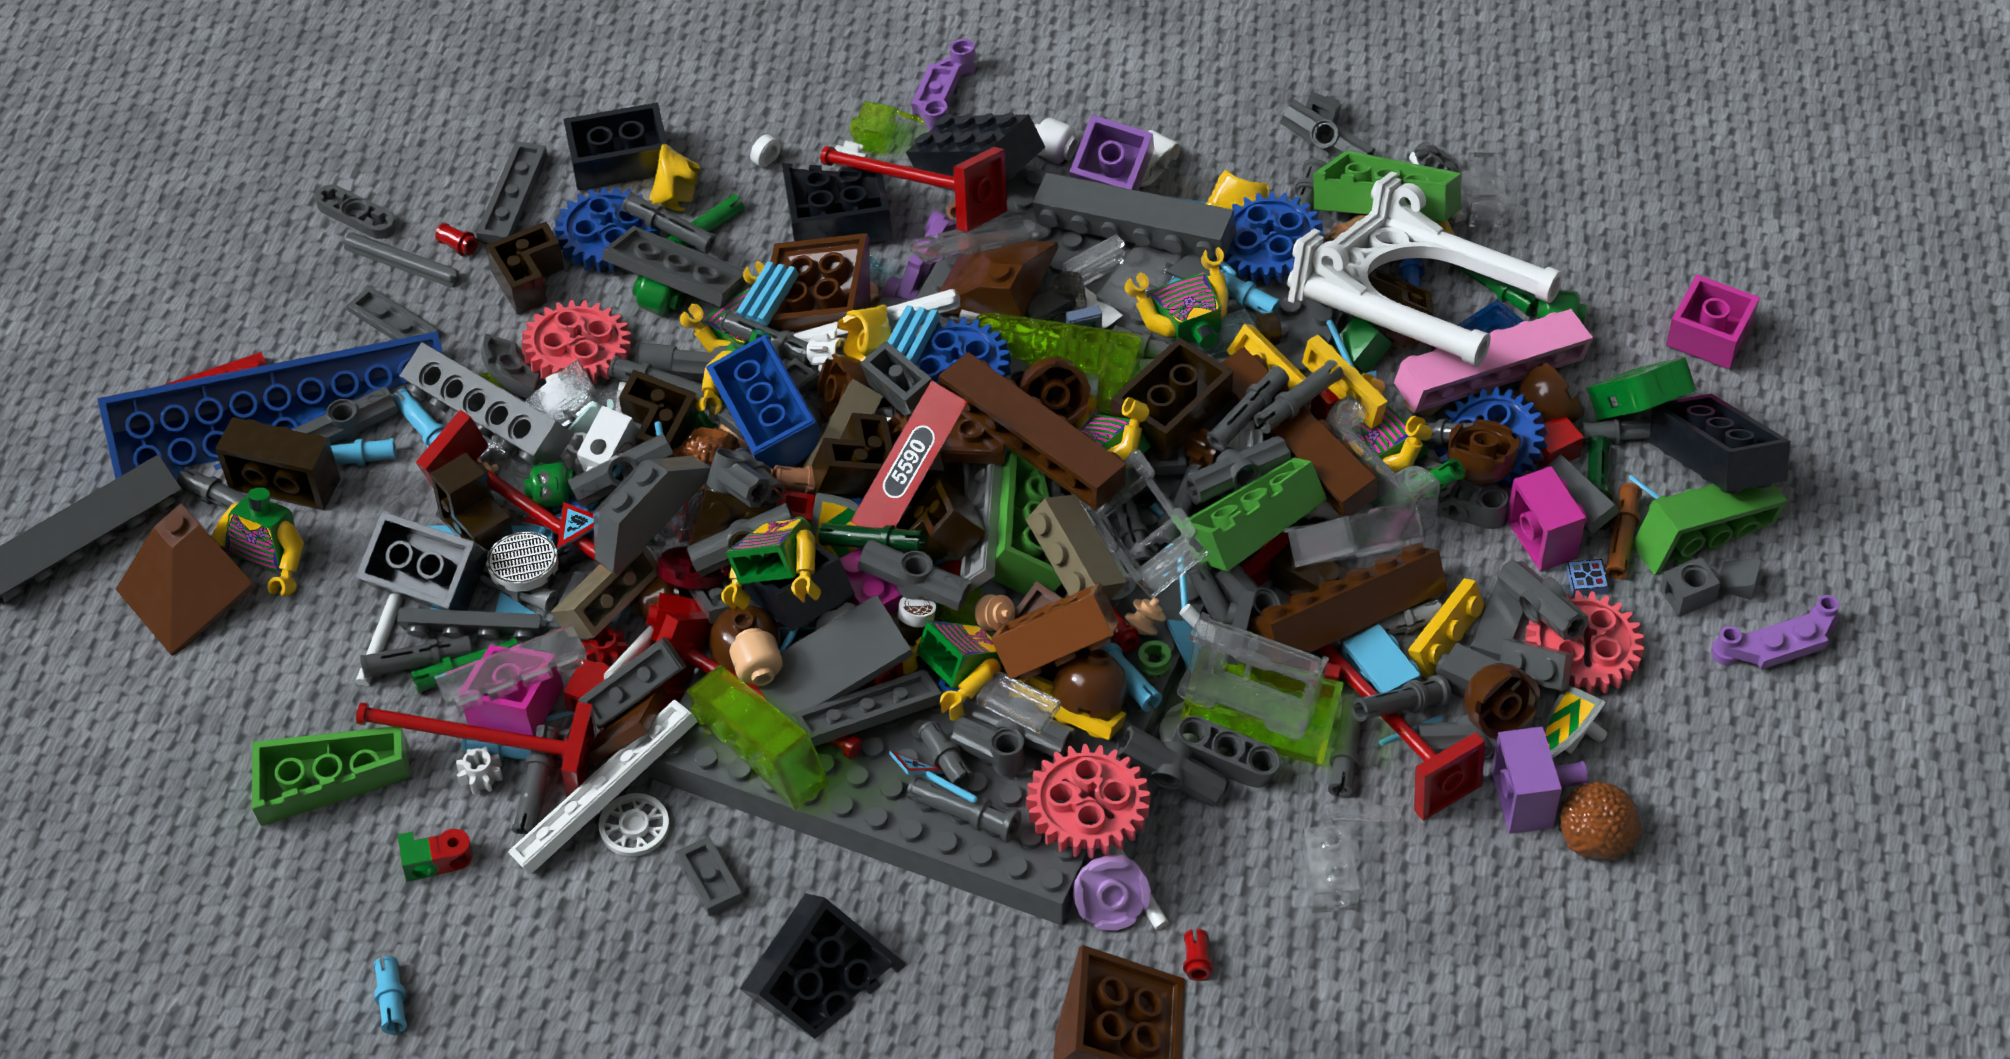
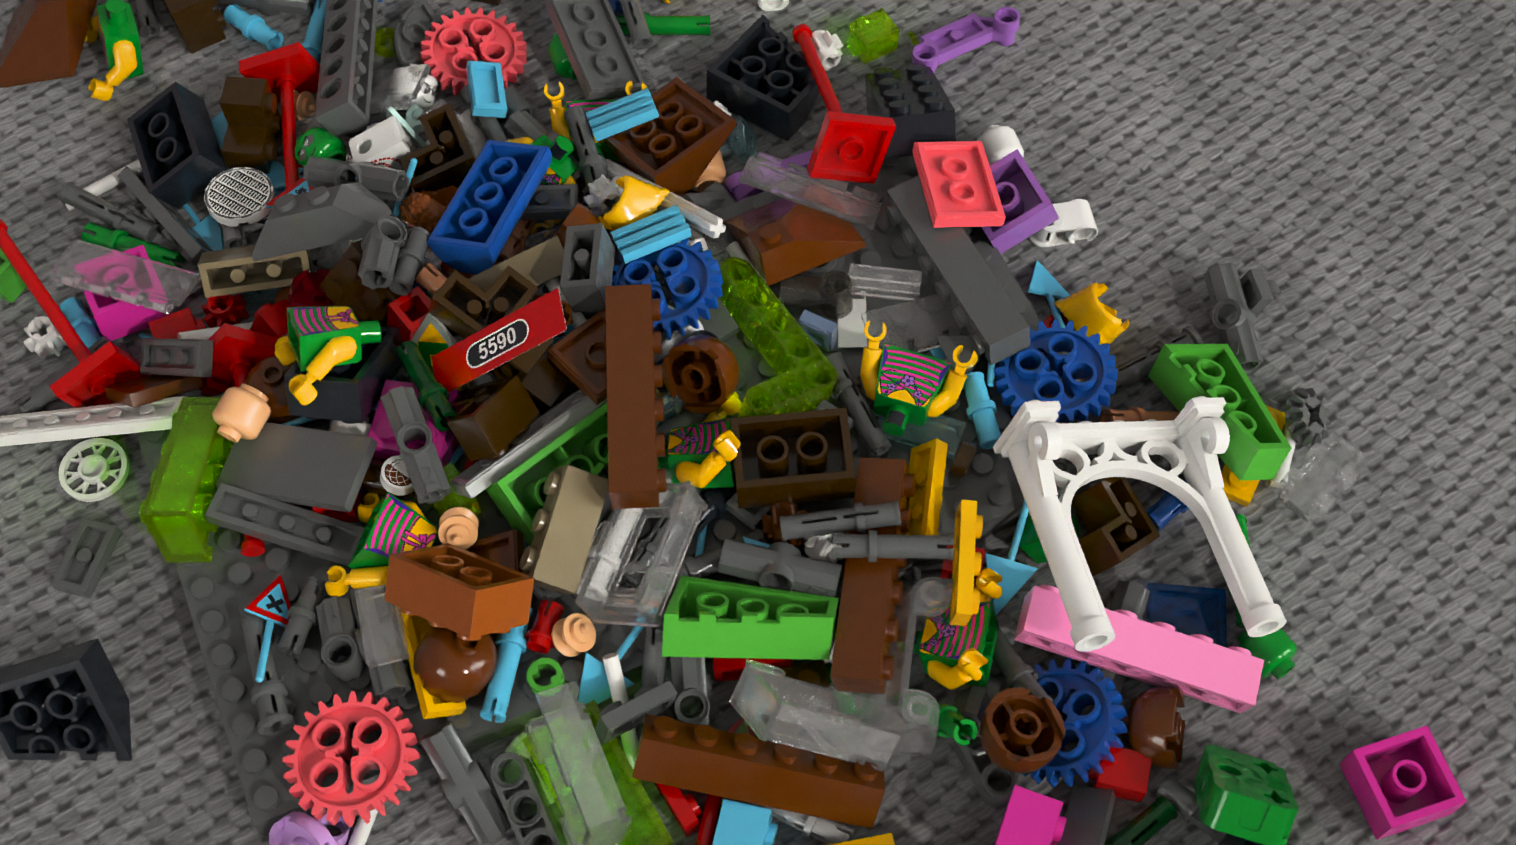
camera: 45 degrees right, 10 degrees up
(633, 352) = (486, 89): none -> medium azure tile
(711, 552) = (365, 307): dark grey piece -> none
(1079, 162) = (958, 184): none -> coral tile

